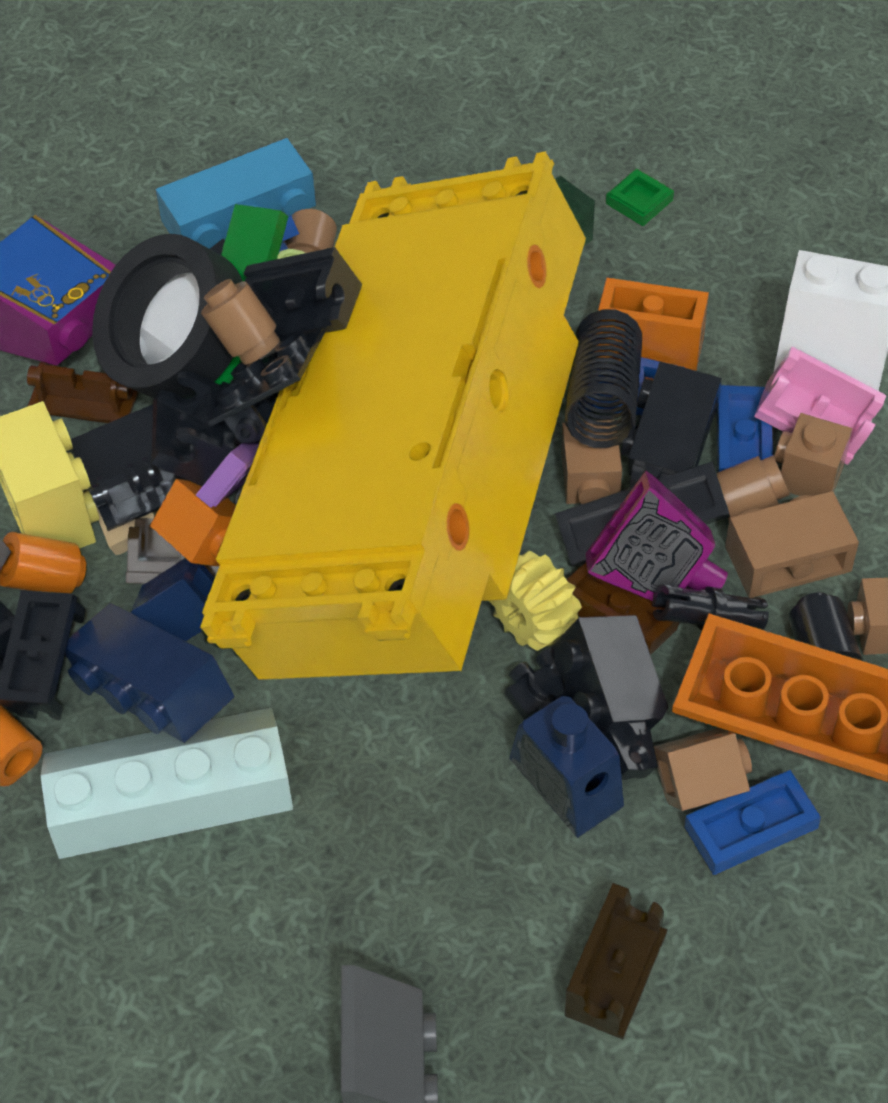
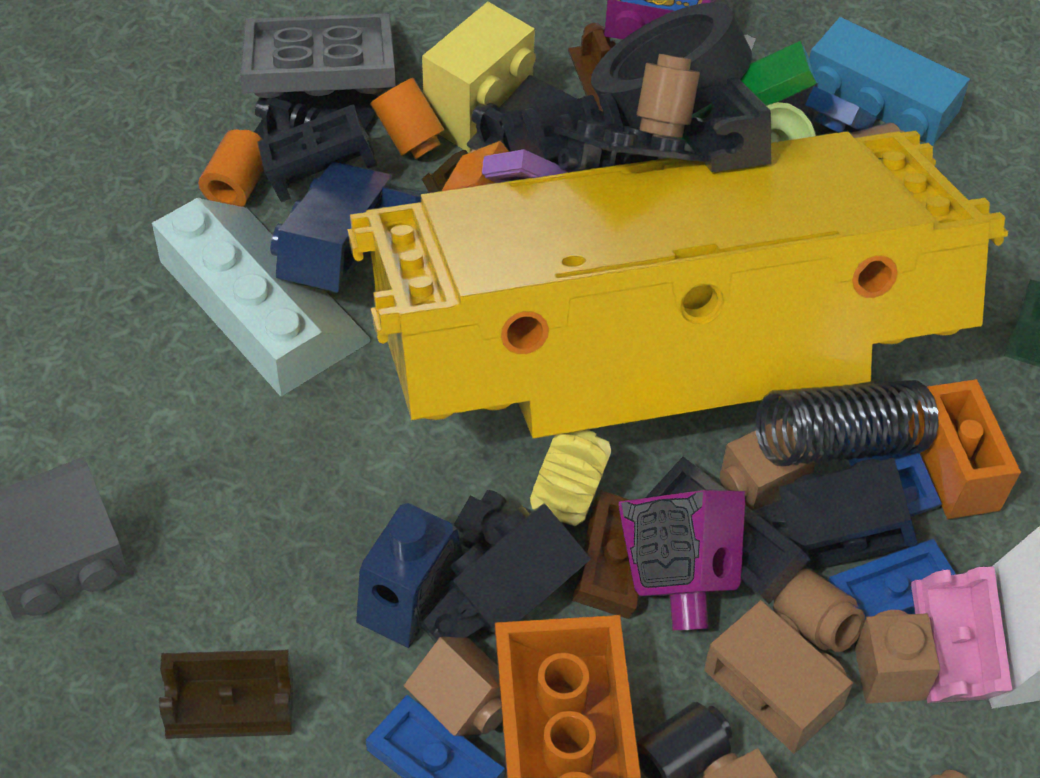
camera: 60 degrees right, 0 degrees up
(695, 605) = (651, 629): black pin -> none

